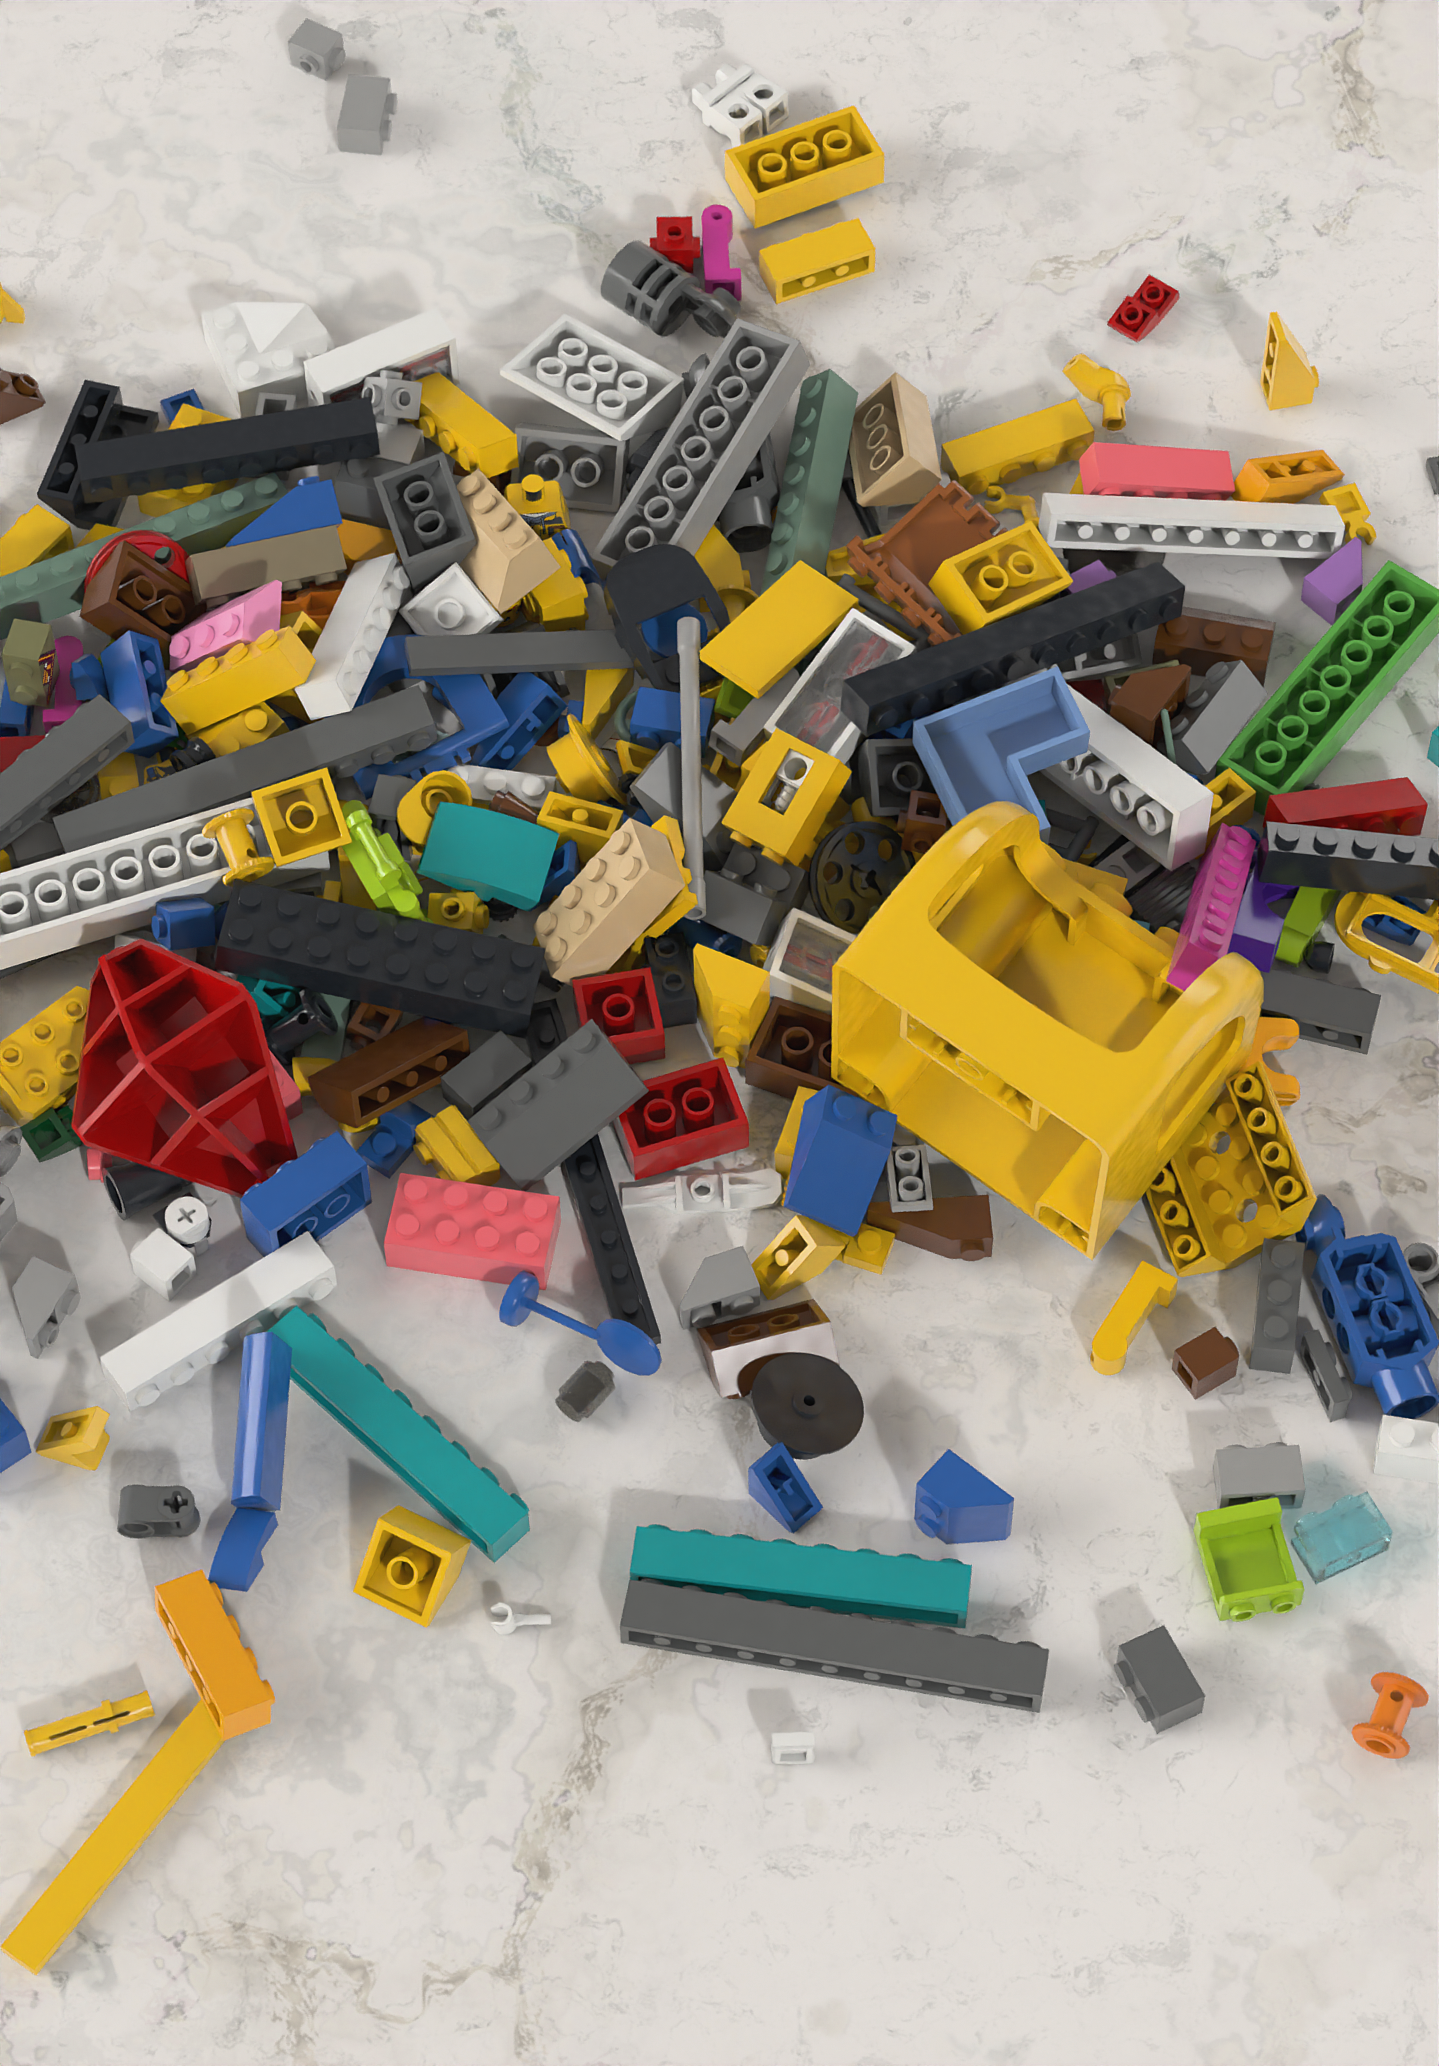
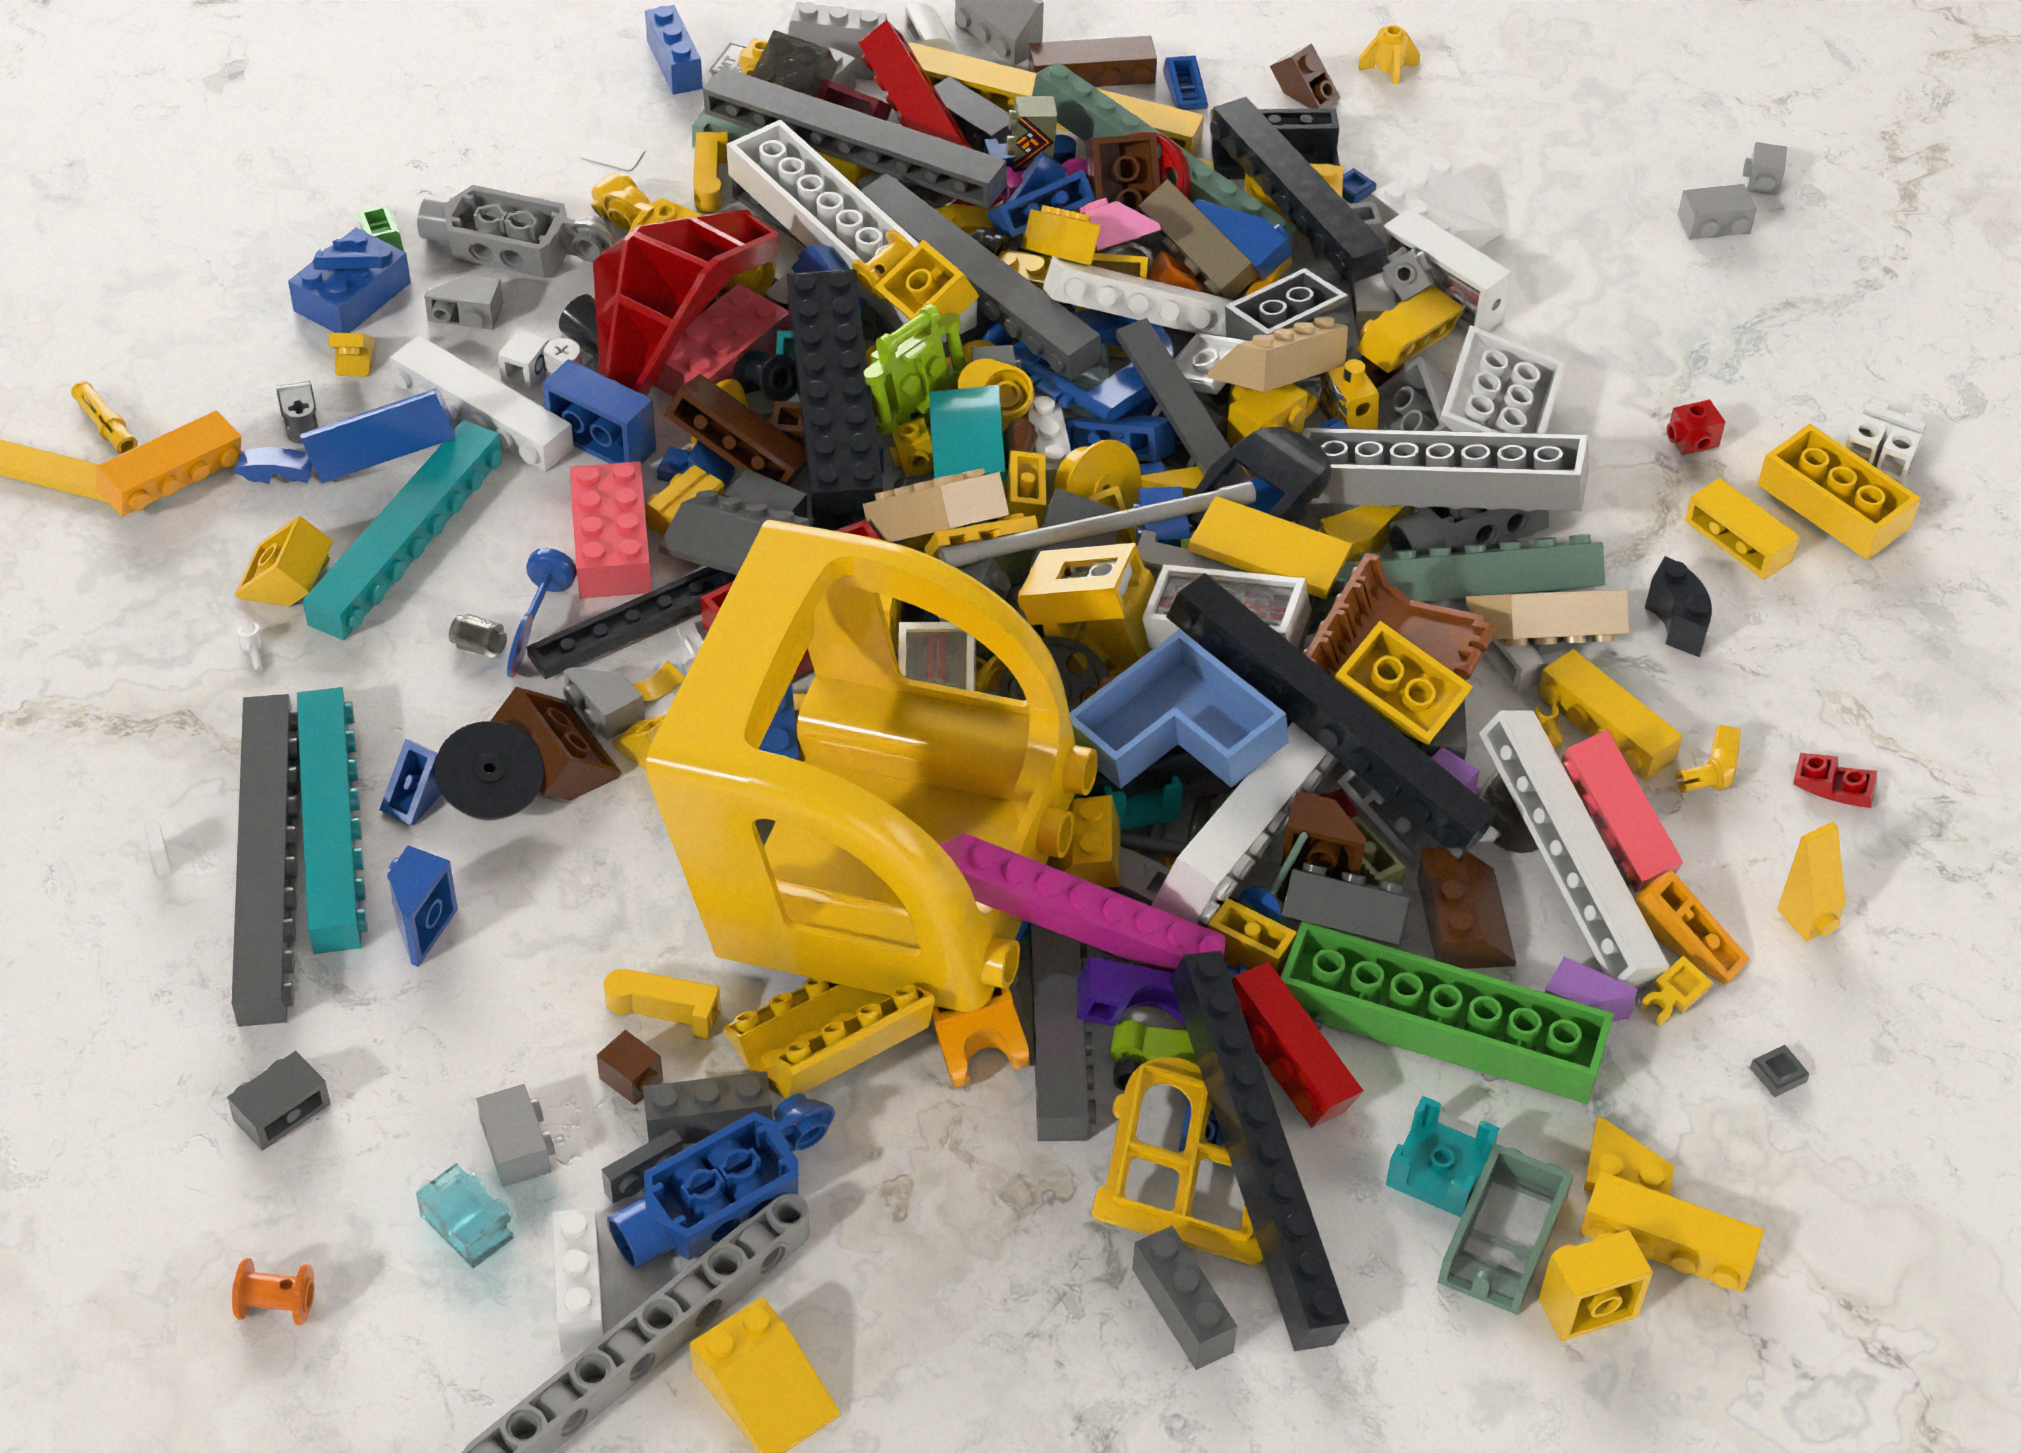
camera: 70 degrees right, 10 degrees down
(664, 294) = (1633, 425): dark grey cylinder -> none
(696, 1238) = (660, 683): none -> yellow sticker
(716, 234) = (1708, 462): dark pink leg -> none
(904, 342) = (1681, 604): none -> black brick
(1247, 1560) = (422, 1147): lime panel -> none

